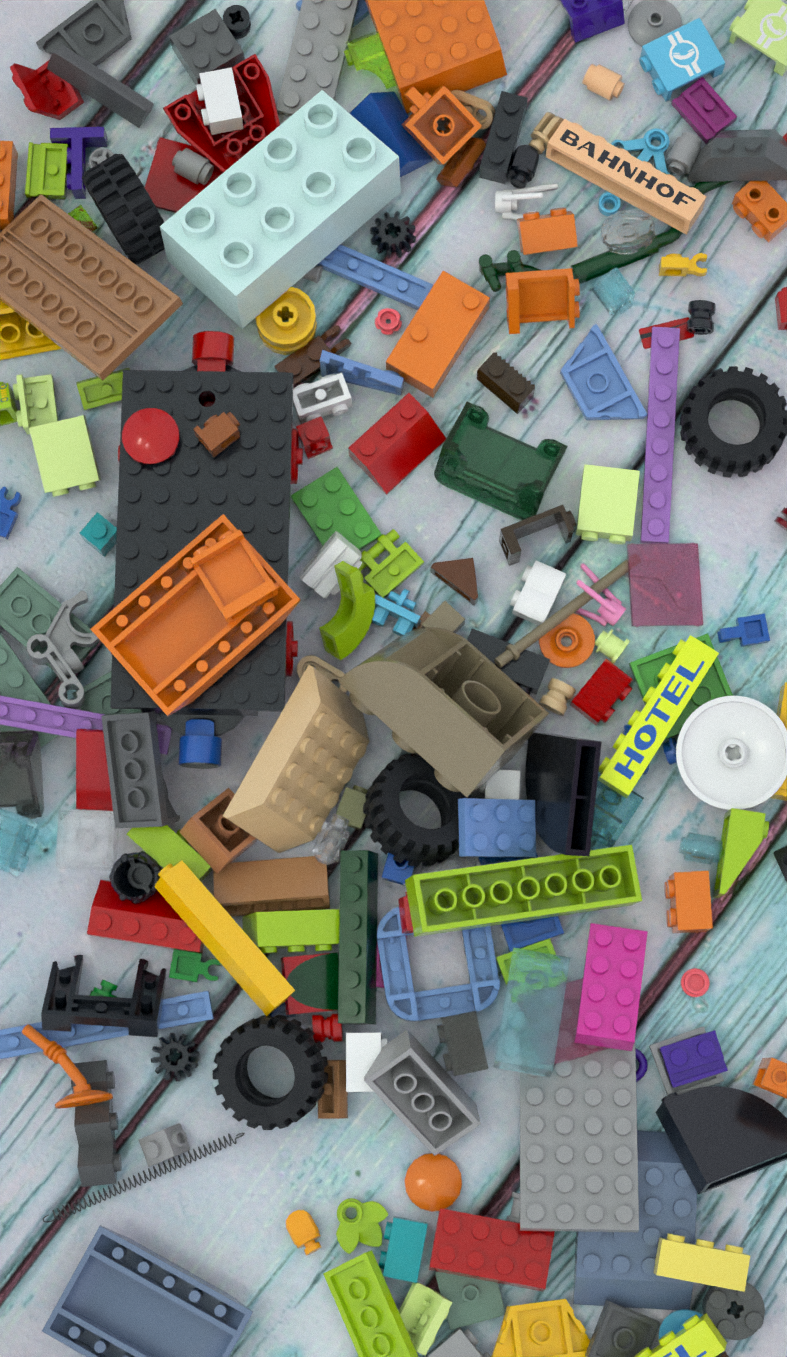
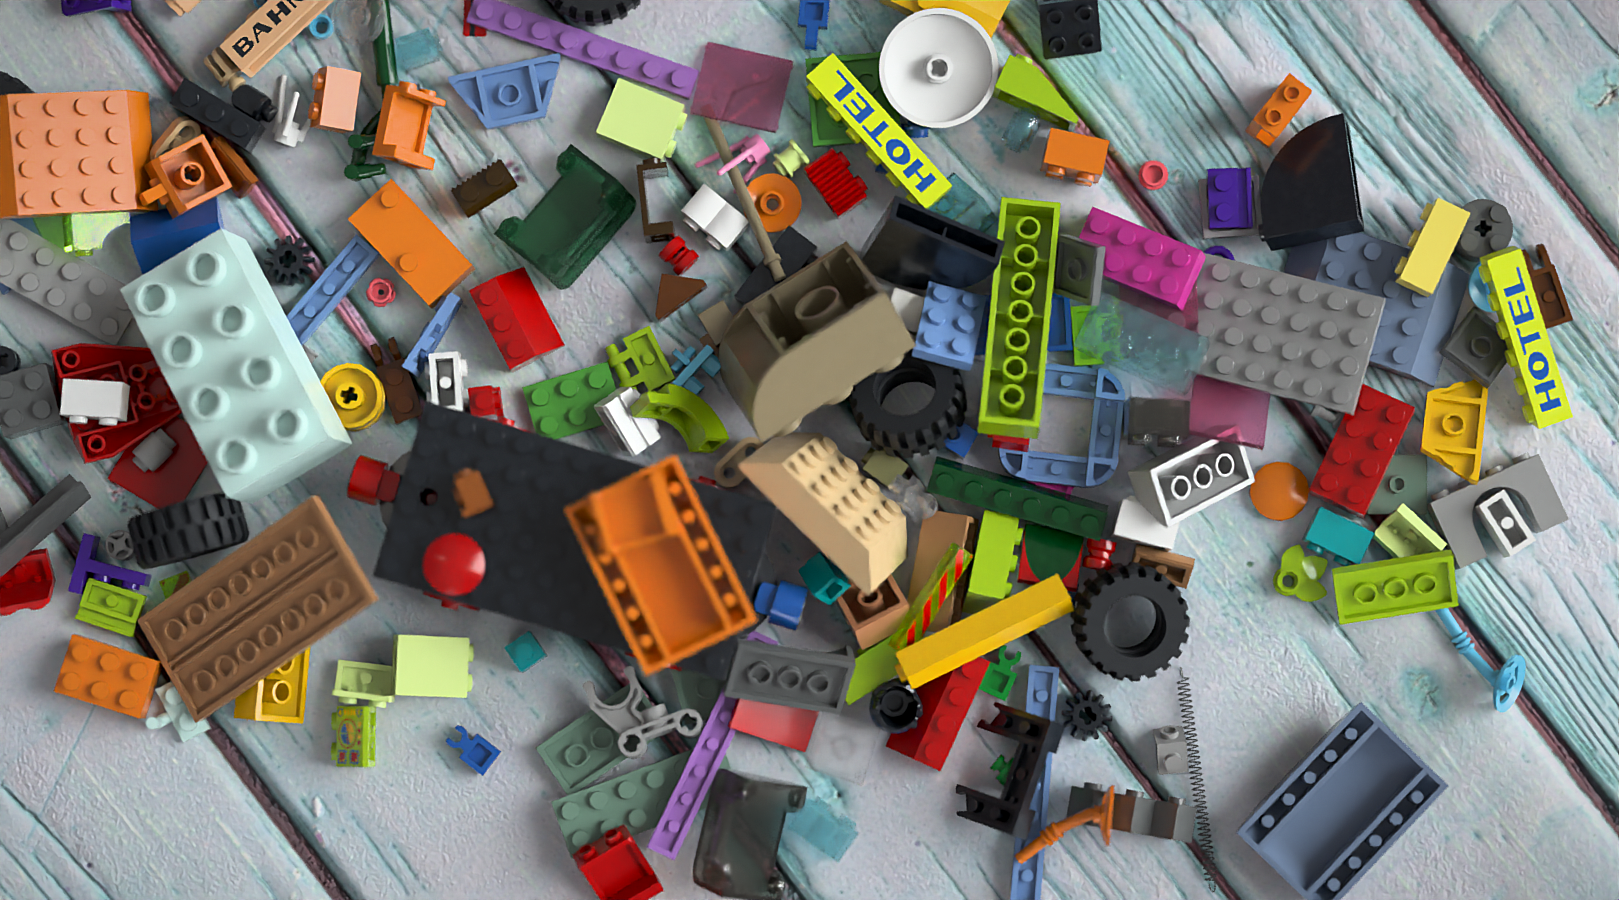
camera: 80 degrees left, 5 degrees up
(99, 392) = (373, 618): lime plate -> none
(230, 776) = (824, 578): none -> teal brick
(242, 880) = (931, 597): none -> clear neon green tile
(303, 1231) = (1293, 632): light orange arm -> none
(490, 1111) = (1228, 412): none -> clear pink piece
(494, 570) = (684, 260): none -> red wheel
(557, 697) = (829, 231): tan wheel -> none
(583, 933) = (1078, 269): none -> dark grey tile

